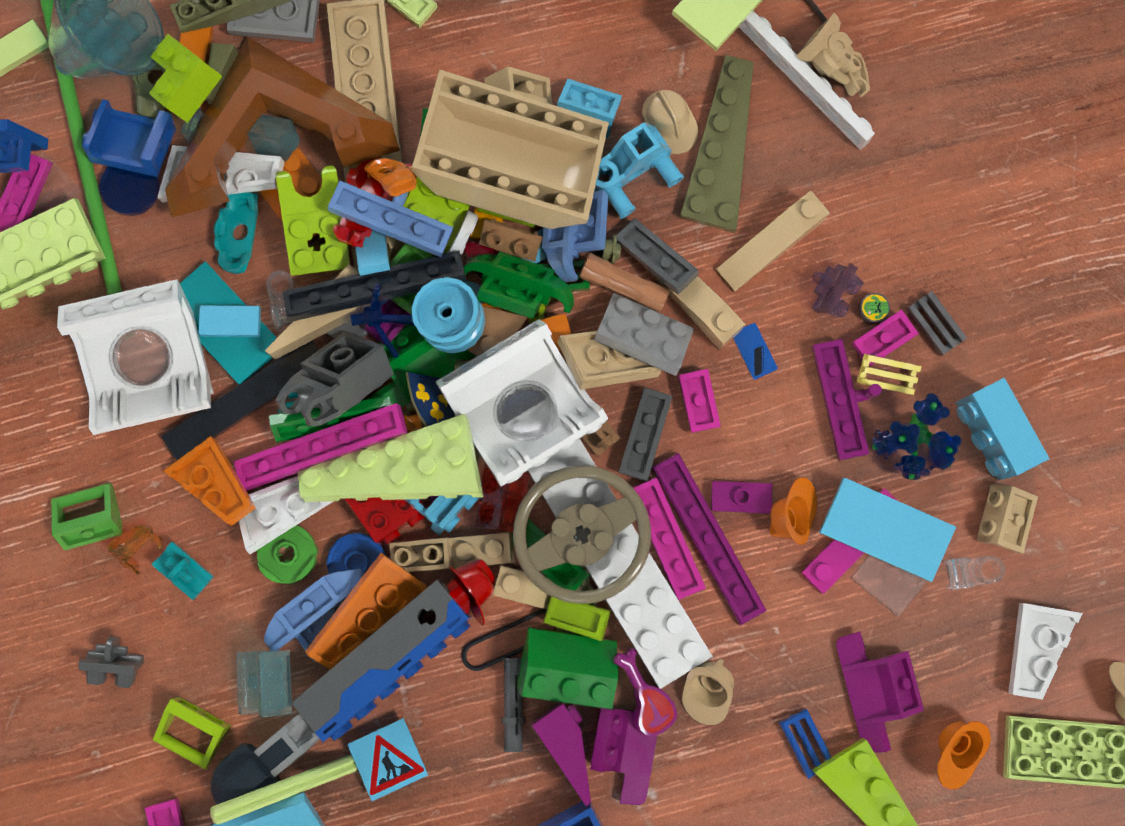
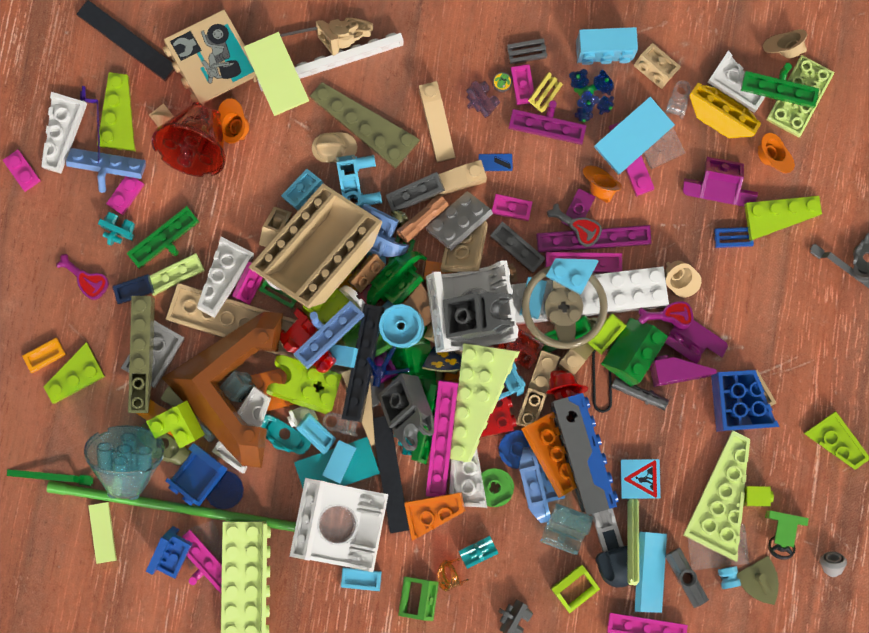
camera: 70 degrees left, 0 degrees up
(76, 419) = (361, 579): none -> medium azure tile
(254, 271) = (316, 433): none -> medium azure tile
(270, 243) = (297, 415): none -> white bracket
(394, 182) = (312, 318): orange piece -> none
(415, 89) = (247, 285): none -> dark pink plate
(417, 50) = (223, 275): none -> white wing
(506, 409) = (475, 315): none -> dark grey brick
(577, 490) = (536, 298): none -> medium azure tile
(634, 523) = (572, 273): none -> medium azure wing
(716, 521) = (586, 229): none -> dark grey piece
(985, 646) = (723, 112): none -> yellow wedge
(1064, 716) = (780, 88): none -> green plate

